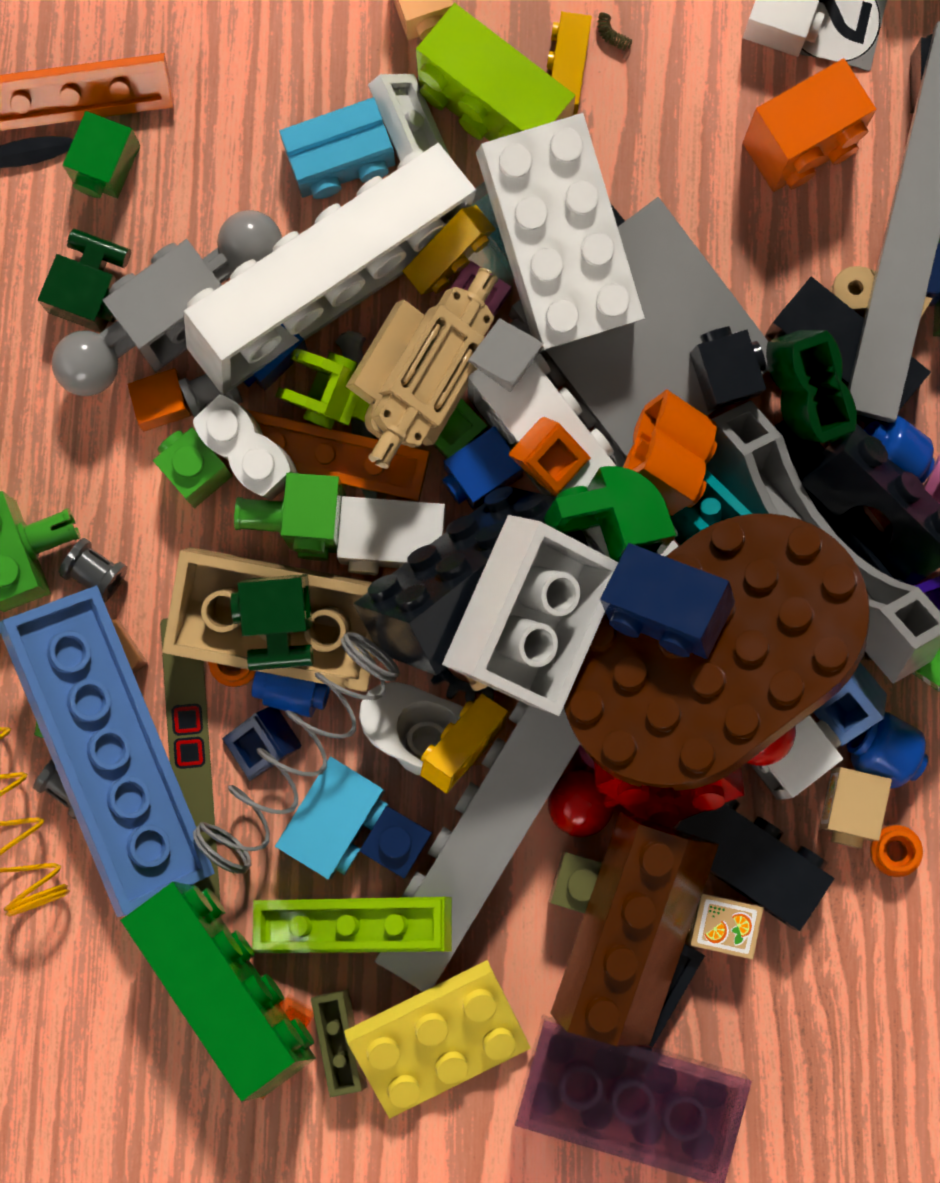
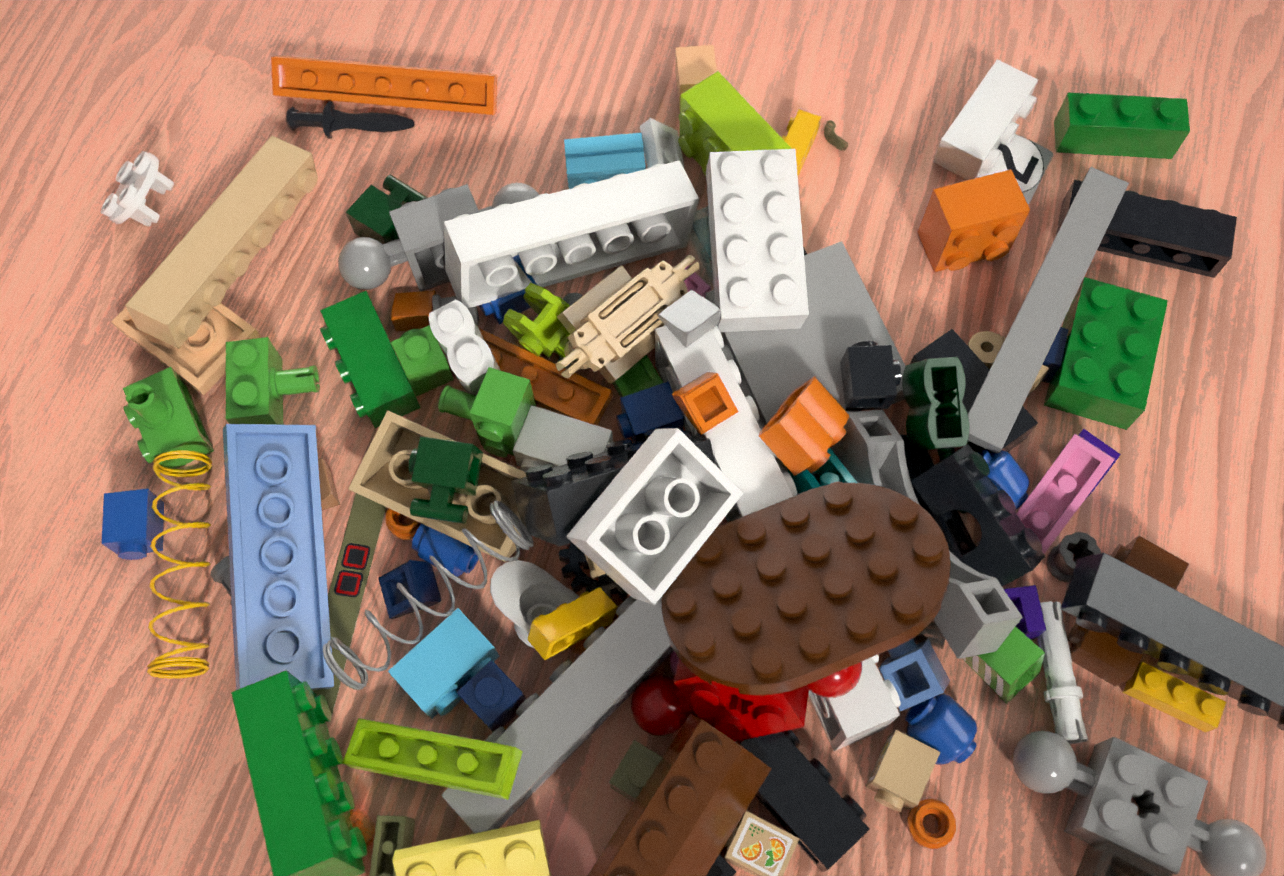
camera: 15 degrees right, 15 degrees down
(92, 569) = (314, 411): dark grey bush -> none
(101, 156) = (429, 132): green brick -> none
(125, 481) = (367, 359): none -> green brick
(449, 250) = (672, 244): yellow piece -> none
(622, 505) = (754, 449): green brick -> none
(667, 602) = (773, 528): dark blue brick -> none

